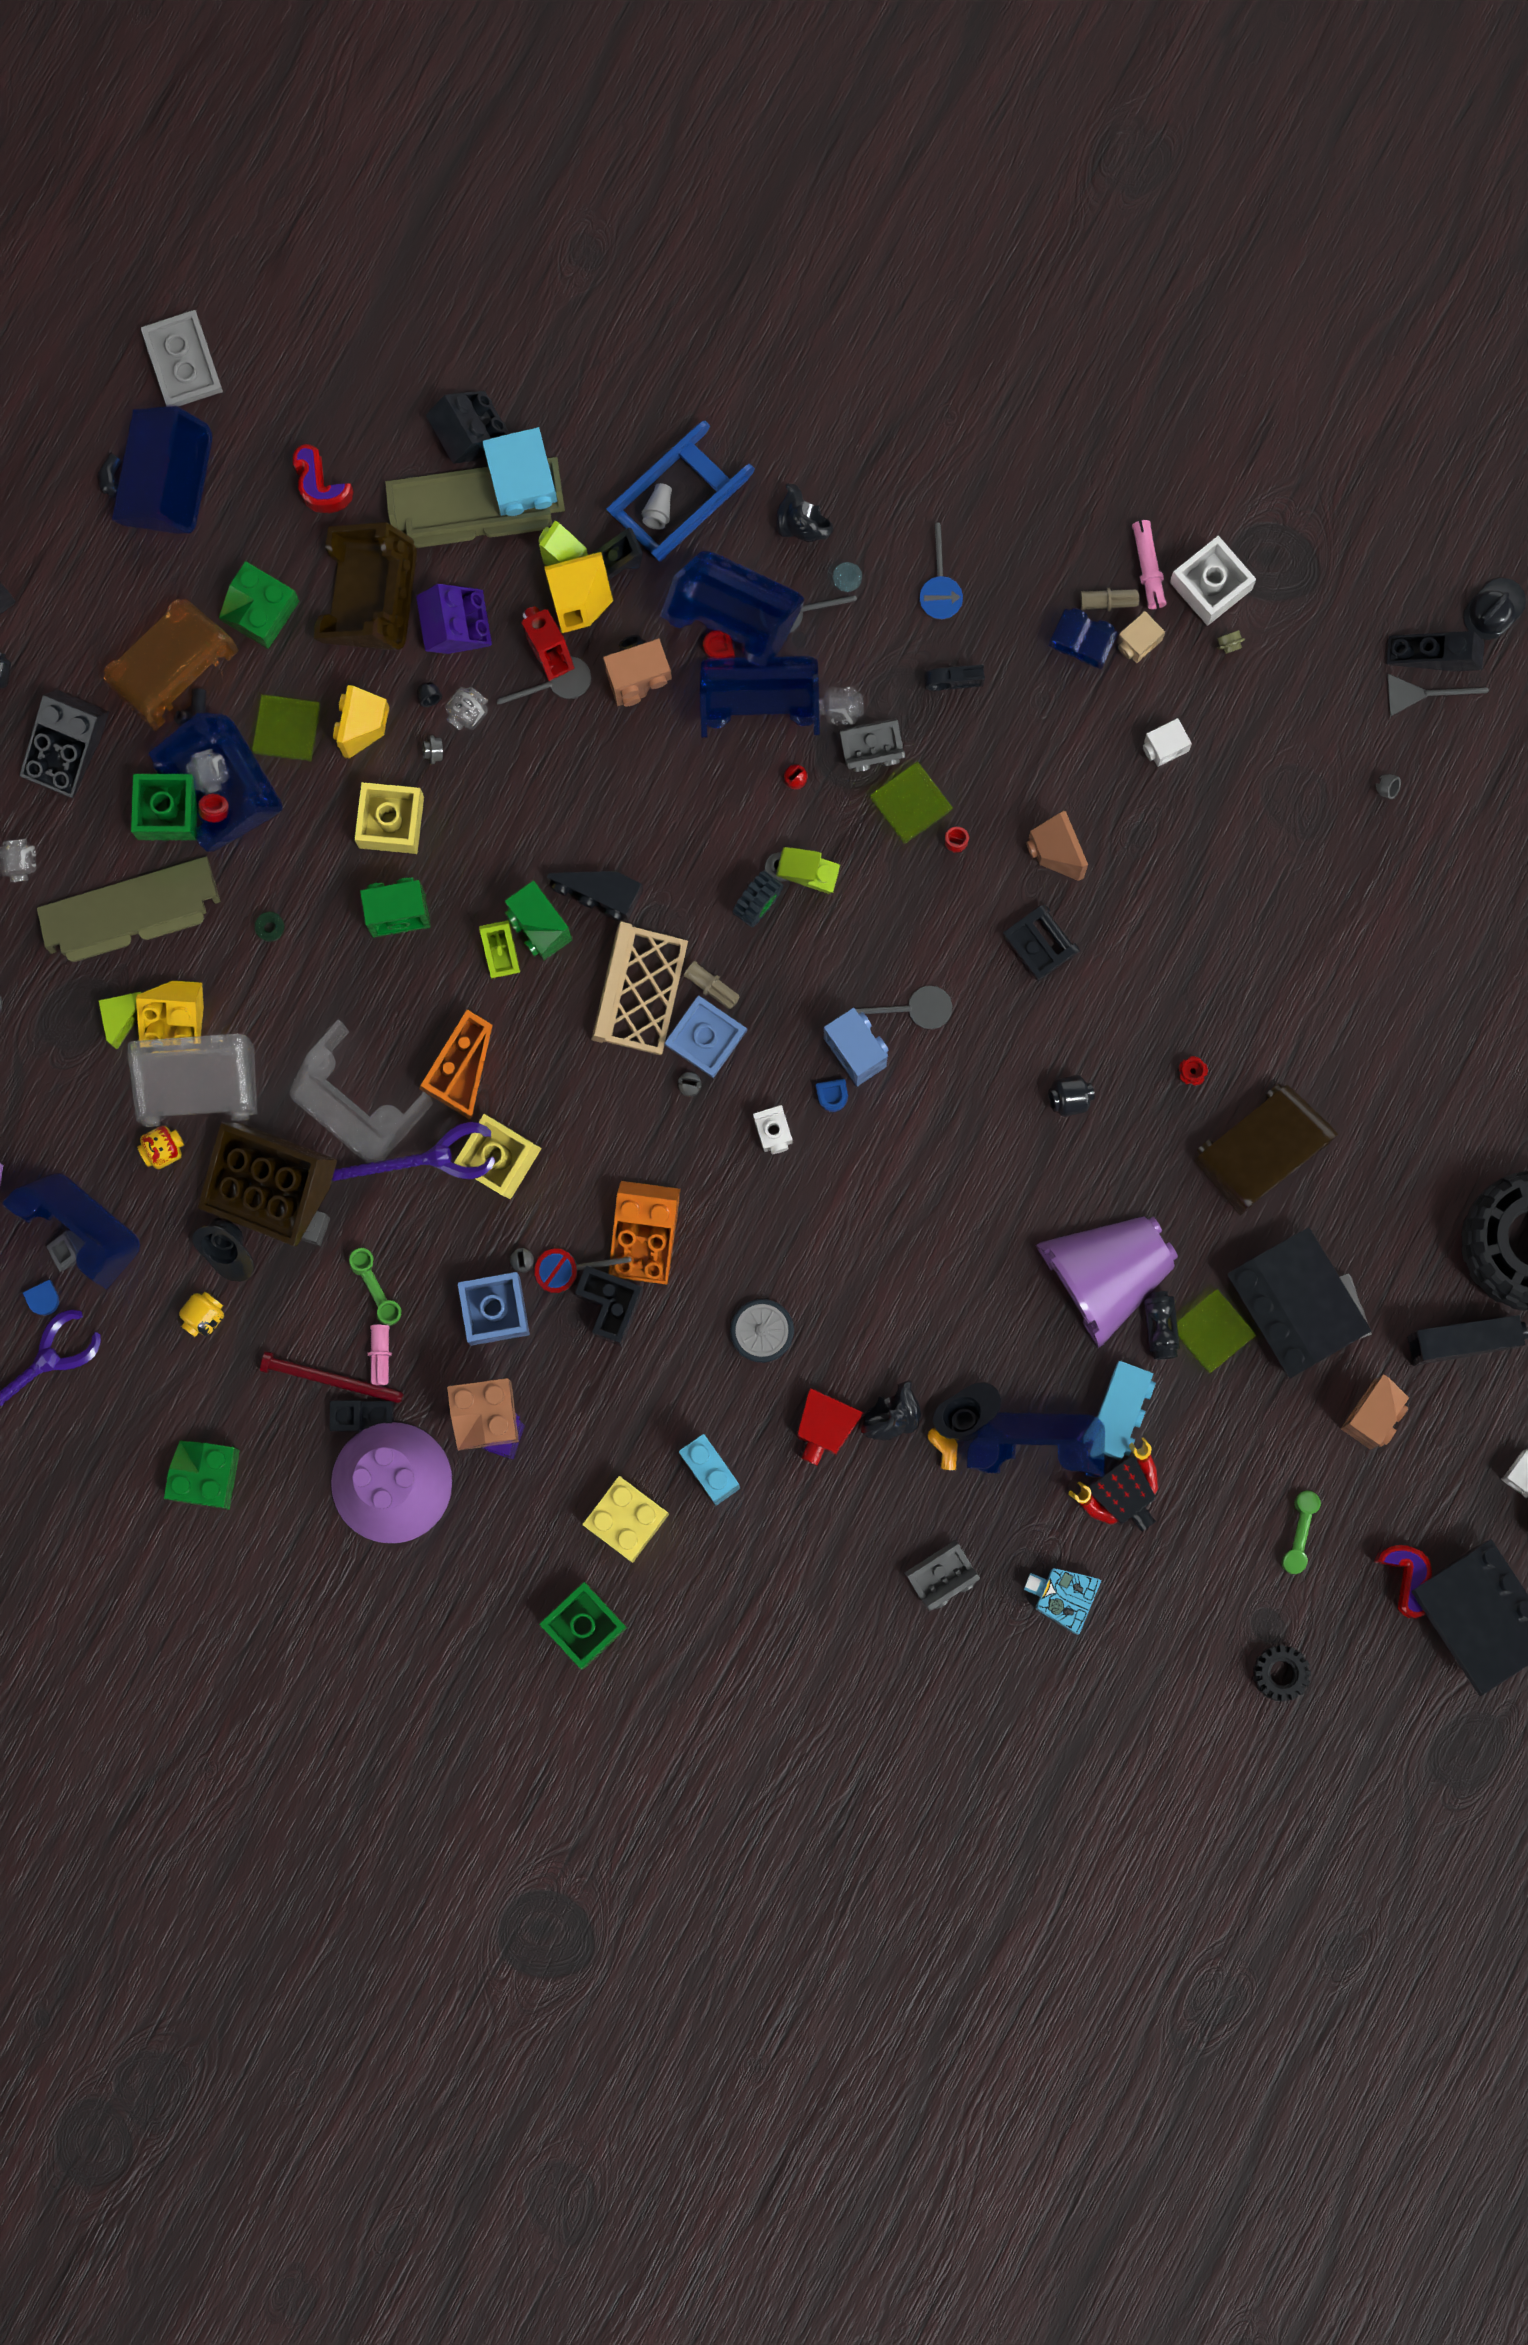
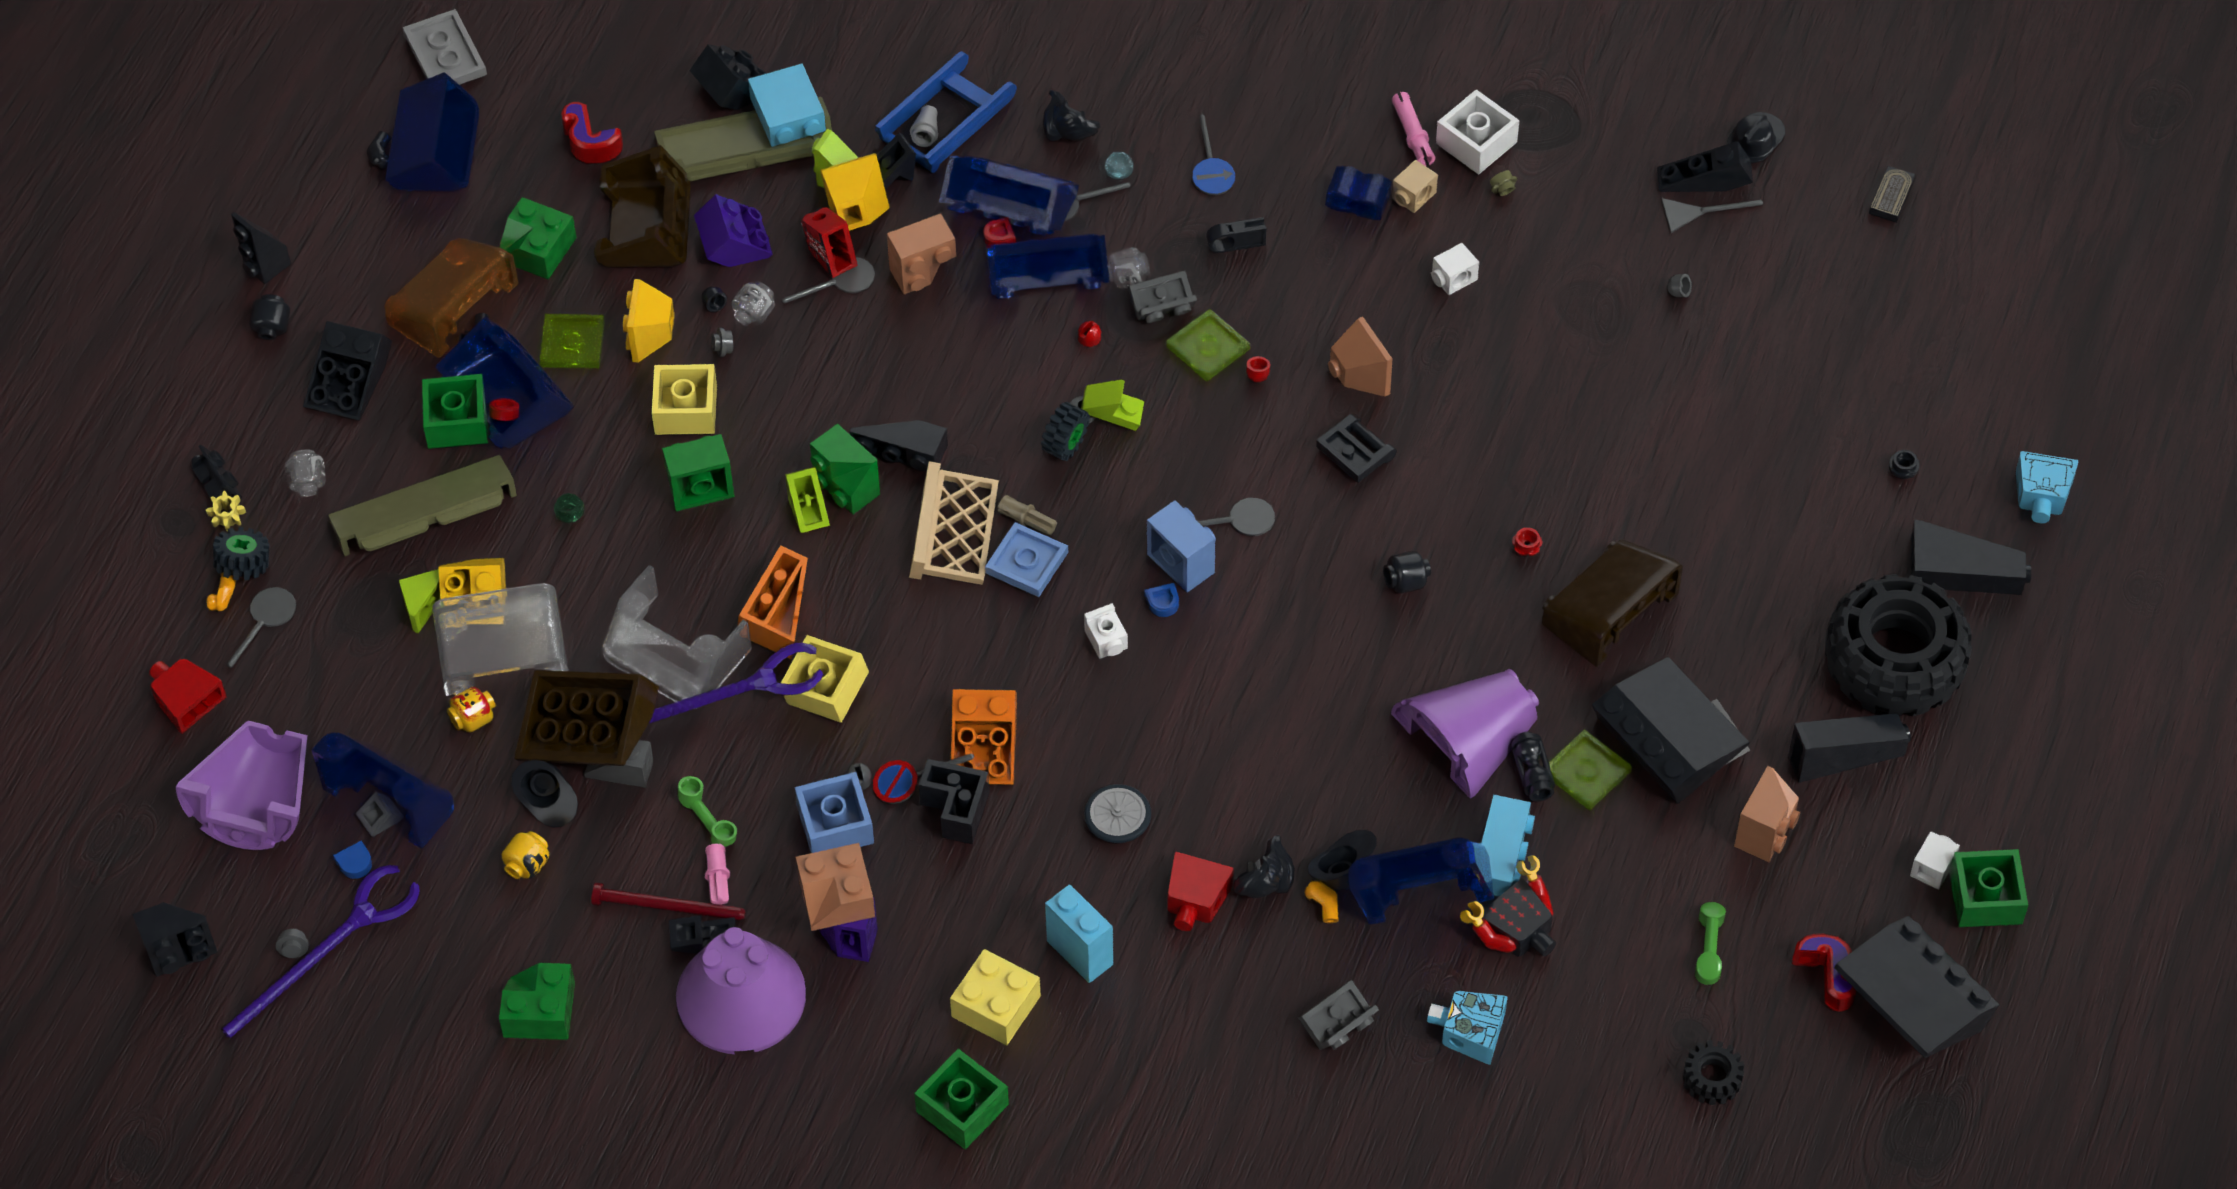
camera: 10 degrees left, 25 degrees down
(207, 771) = (498, 376): clear head -> none
(686, 1089) = (1015, 604): dark grey hinge -> none
(1109, 599) = (1379, 160): dark tan axle -> none

